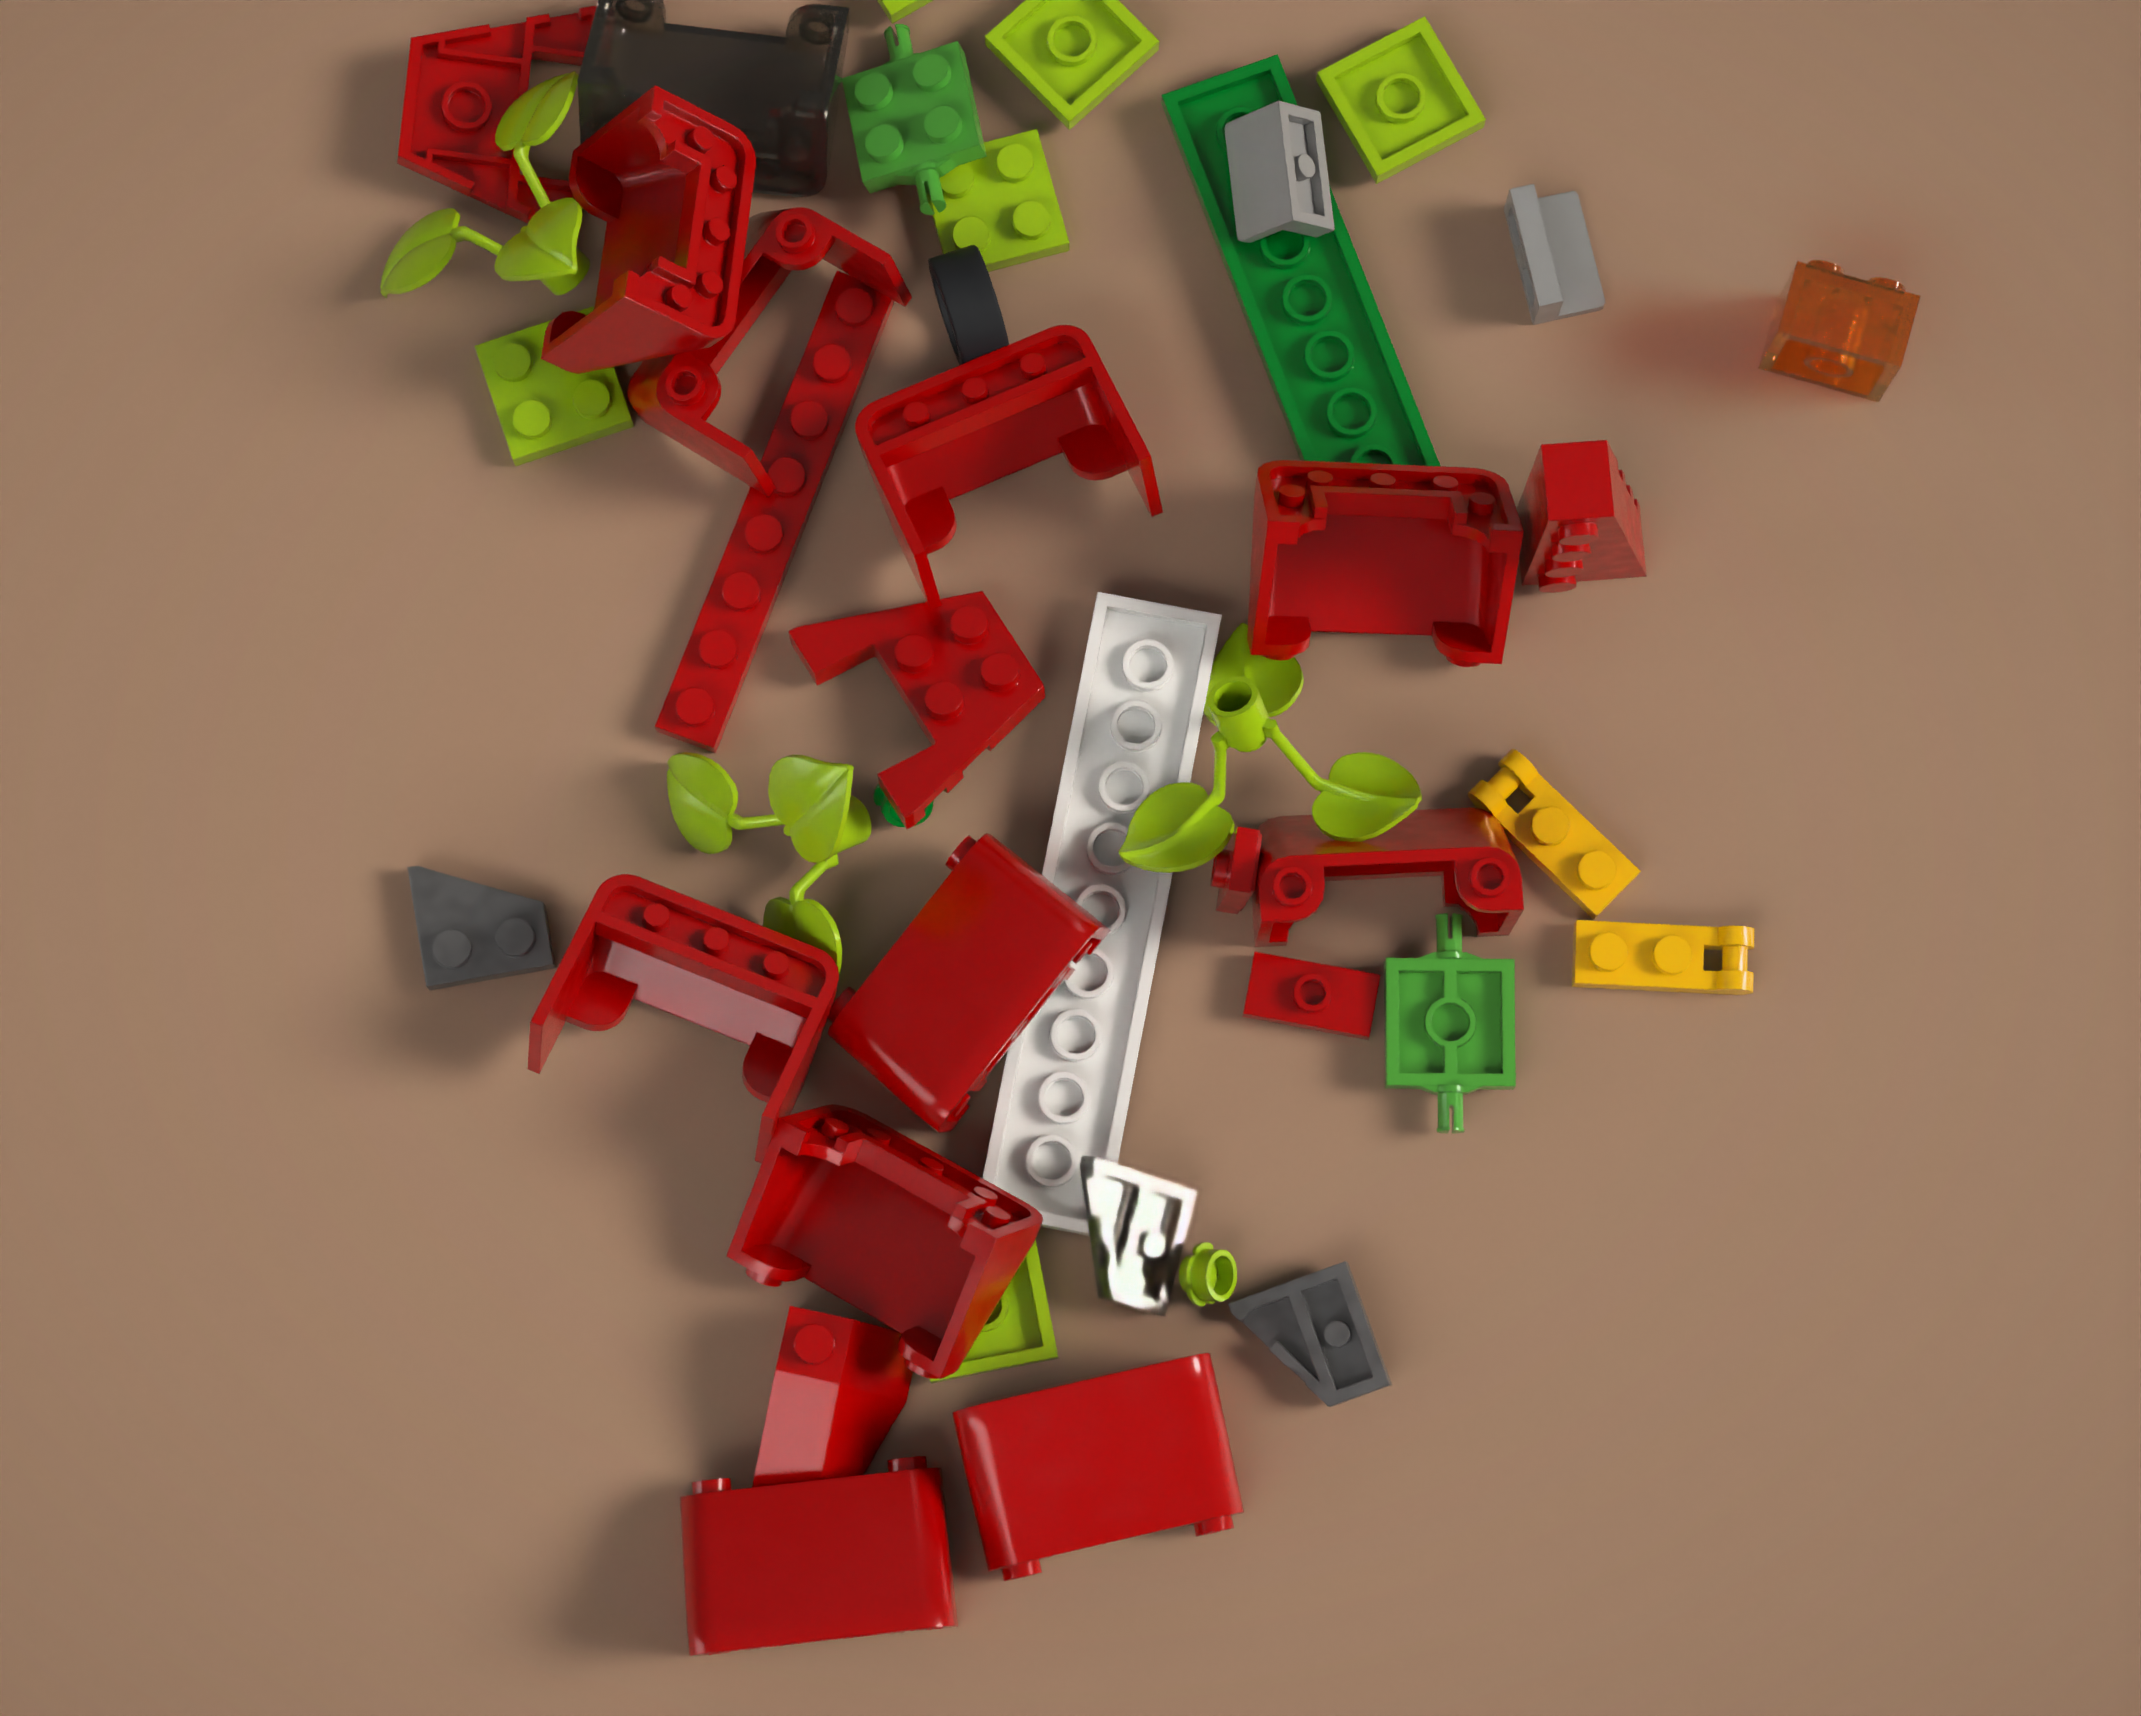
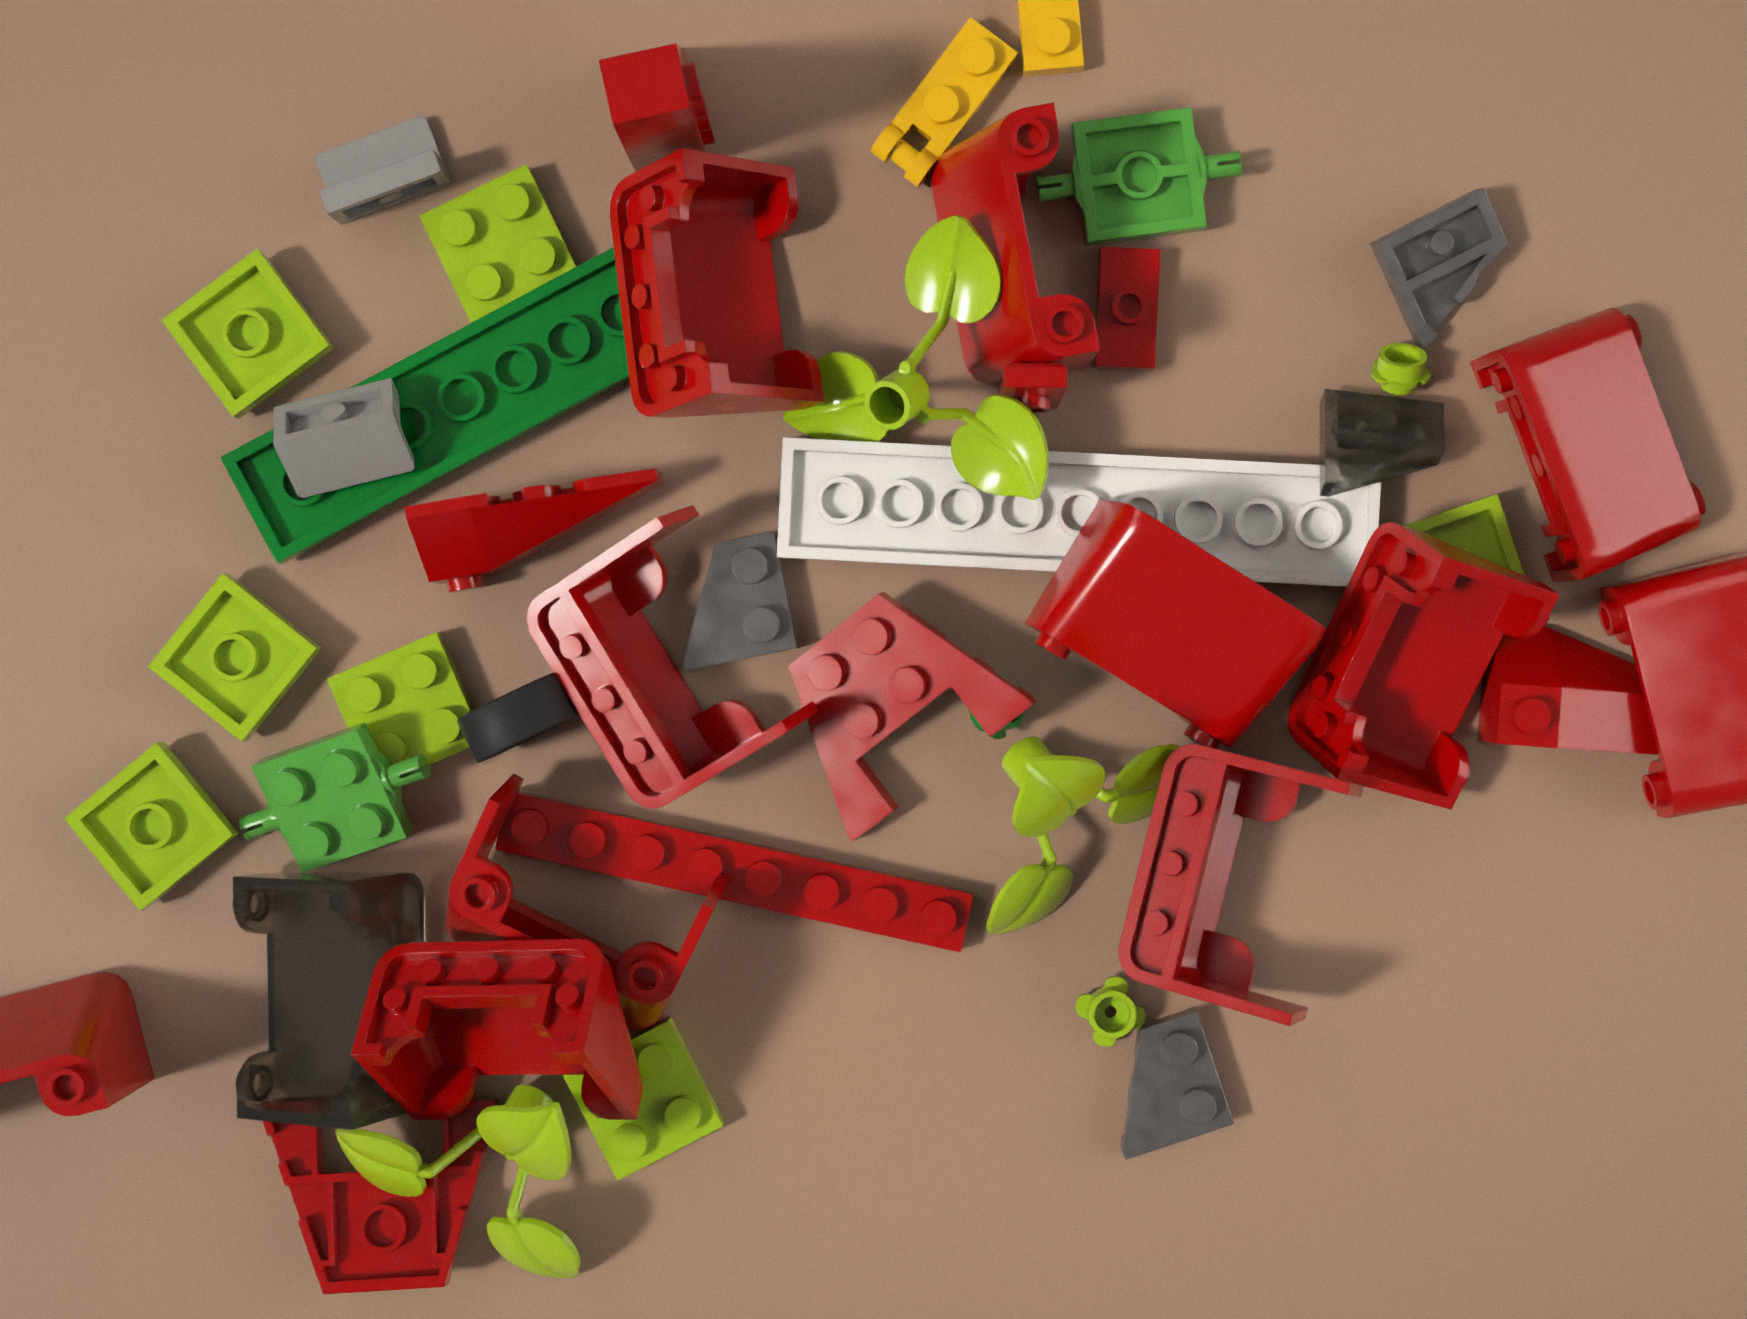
camera: 100 degrees left, 10 degrees up
(551, 865) = (1127, 1014): none -> lime plate
(1052, 554) = (741, 605): none -> flat silver wing
(1160, 311) = (486, 535): none -> red wedge
(1464, 361) = (498, 242): none -> lime plate

